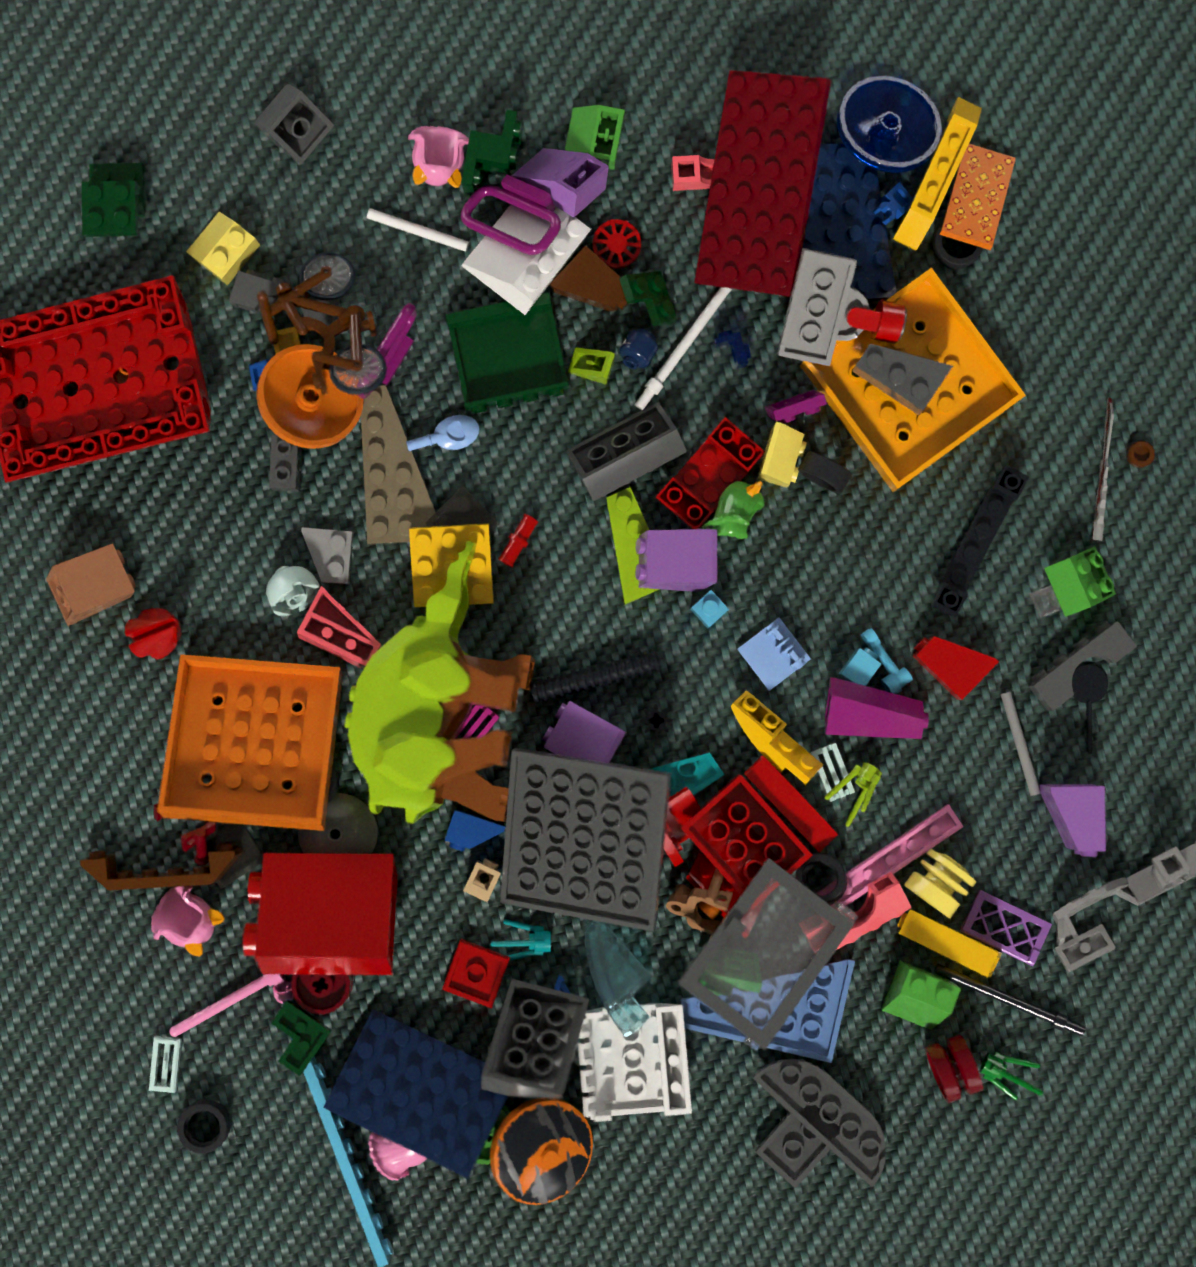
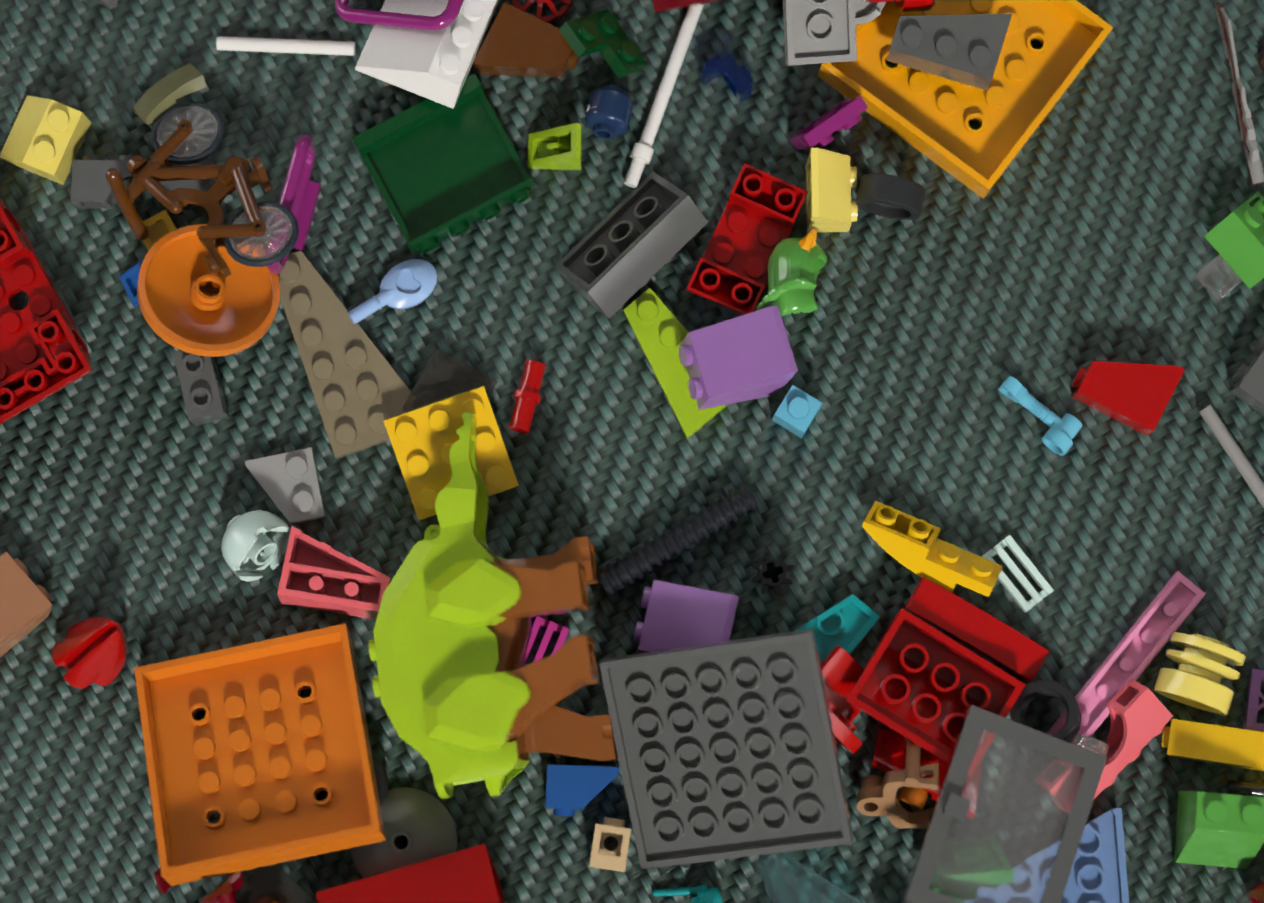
camera: 15 degrees left, 5 degrees down
(322, 238) = (165, 92): none -> olive slope
(774, 654) = (896, 445): light blue hinge -> none
(860, 666) = (1011, 430): medium azure brick -> none
(867, 778) = (1064, 568): lime plant -> none
(872, 712) = (1043, 481): magenta slope -> none
(977, 540) = (1109, 223): black slope -> none

